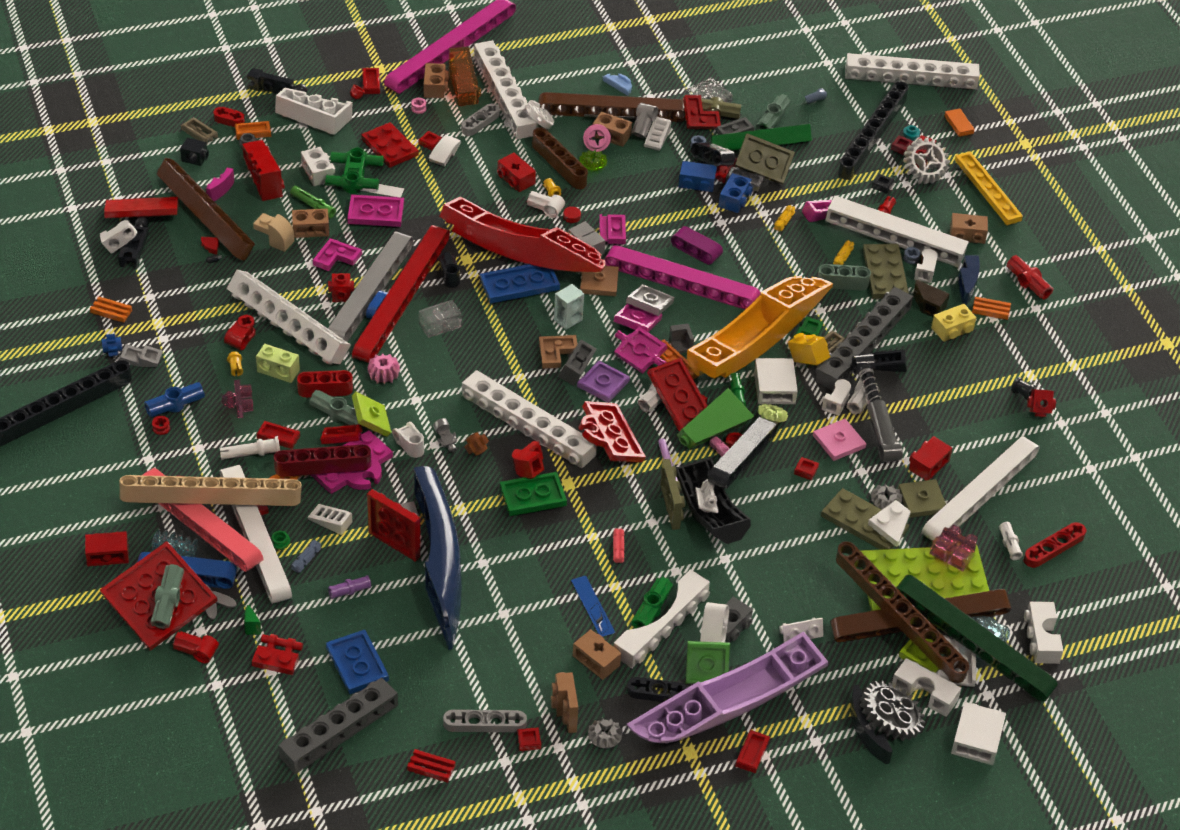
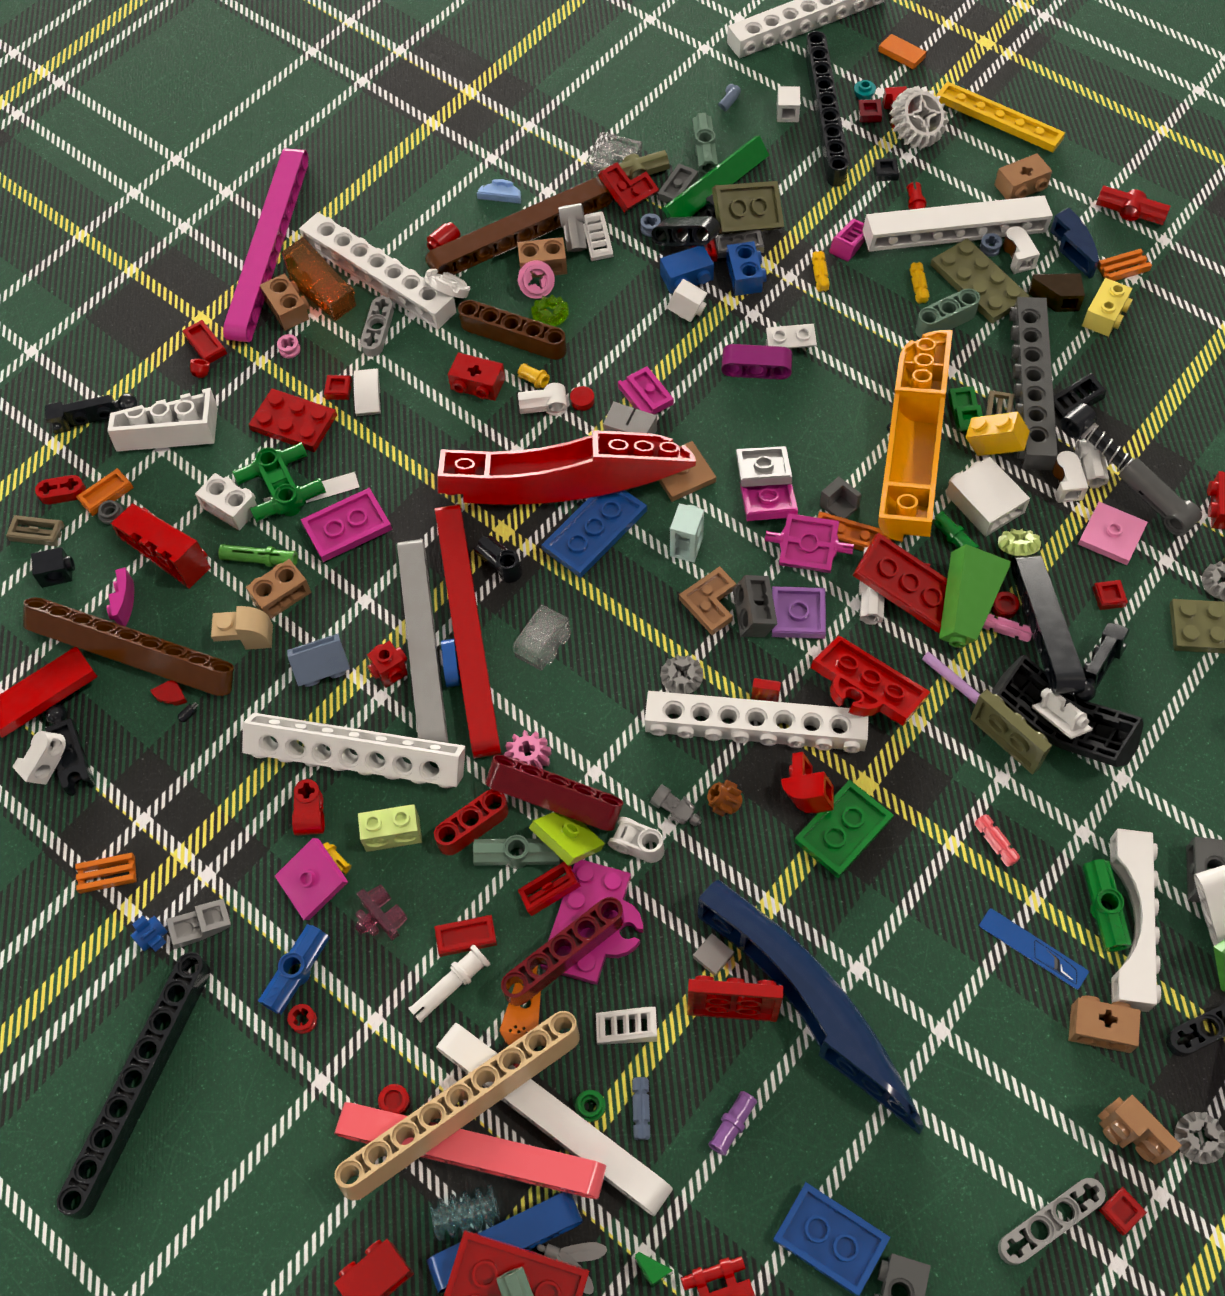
camera: 25 degrees left, 15 degrees up
(216, 364) = (311, 879): none -> dark pink plate
(303, 265) = (318, 660): none -> sand blue piece
(334, 251) = (342, 610): dark pink plate -> none
(381, 390) = (554, 792): none -> dark red beam
(514, 374) = (681, 684): none -> light grey gear
(548, 405) = (766, 690): none -> red tile
(561, 87) = (443, 235): none -> red brick
(680, 192) = (687, 301): none -> white brick
(682, 277) = (775, 414): dark pink beam -> none
(730, 241) = (791, 336): none -> white hinge
(761, 491) = (1111, 647): none -> black plate
(849, 116) = (788, 104): none -> white brick

